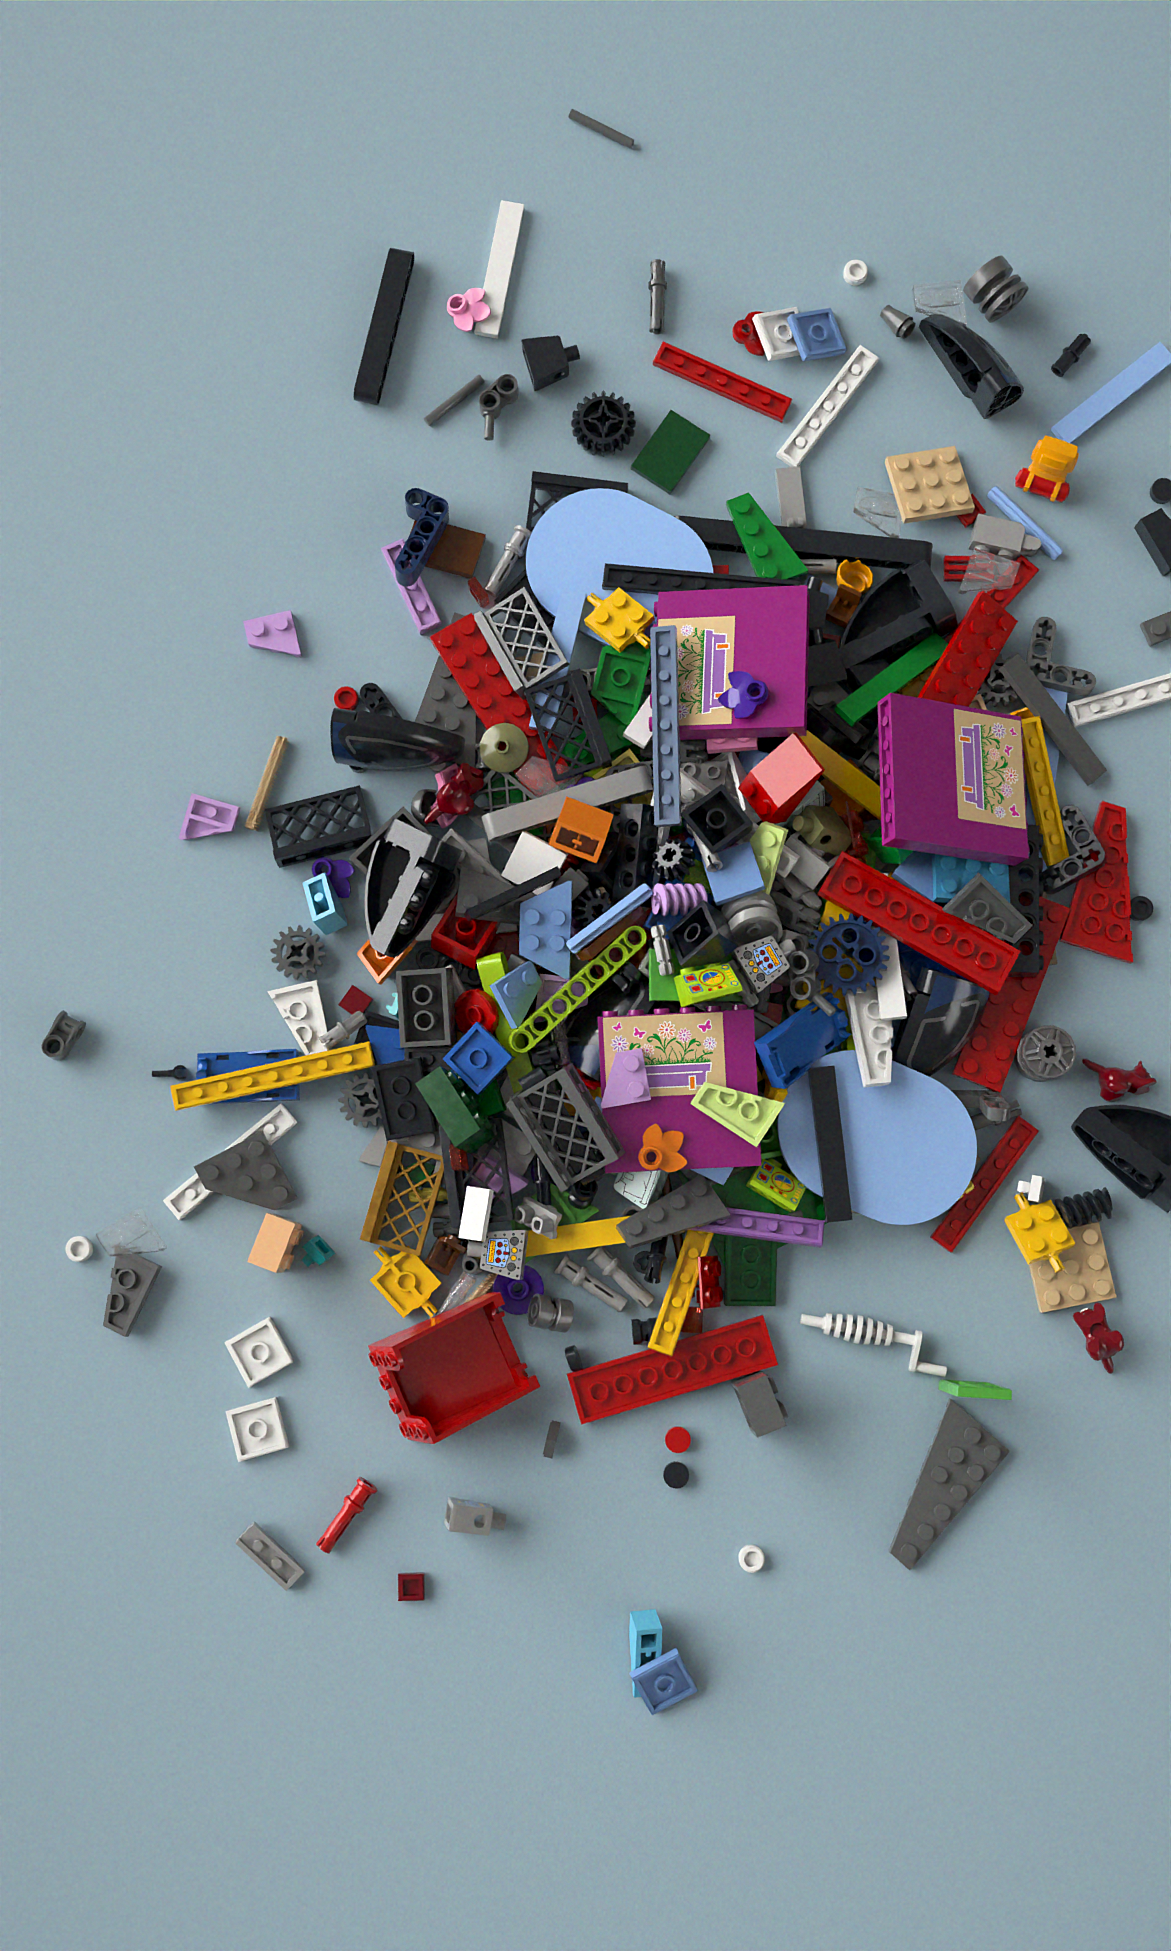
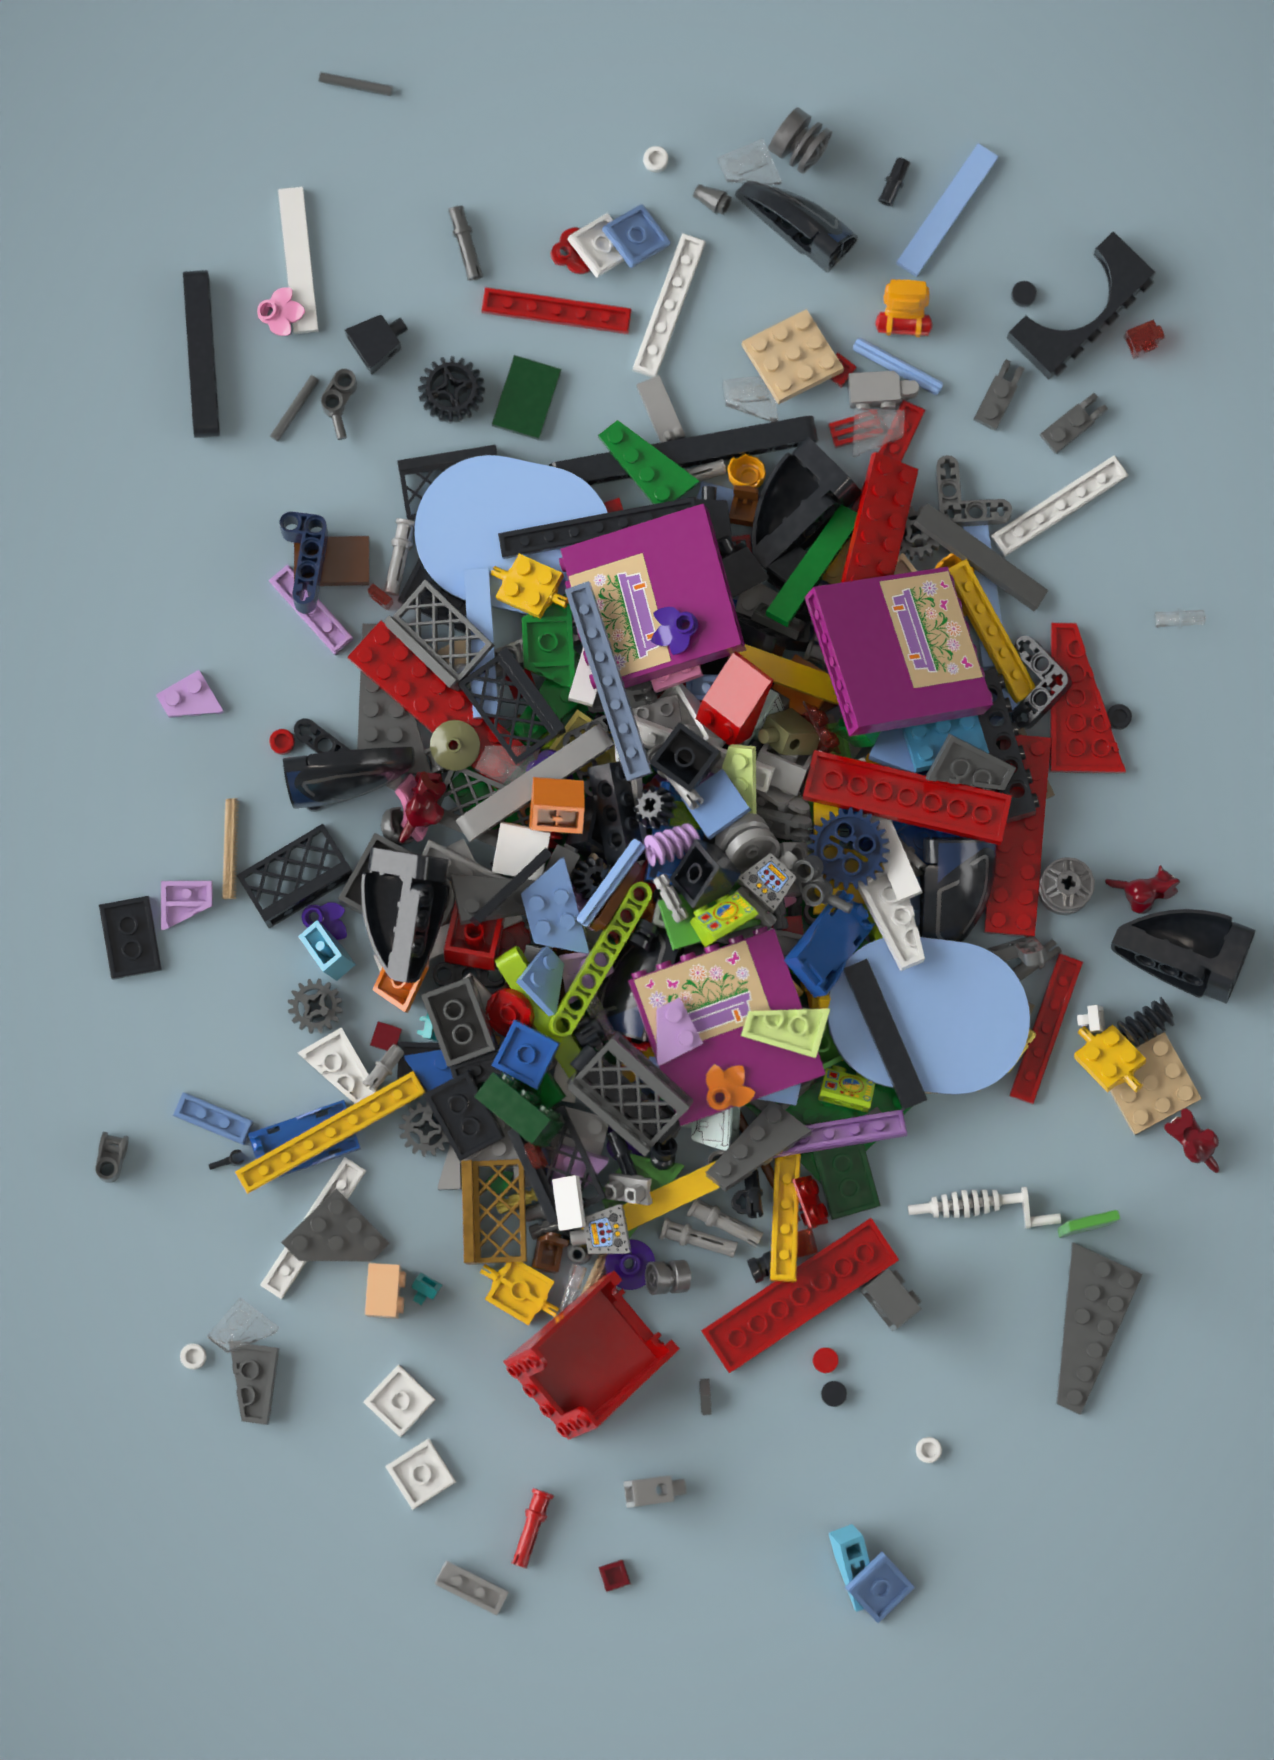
camera: 20 degrees left, 0 degrees up
(148, 837) = (130, 937): none -> black tile
(170, 1029) = (213, 1118): none -> medium blue tile
(573, 1358) = (702, 1313): black tile -> none
(1110, 578) = (998, 397): none -> dark grey hinge

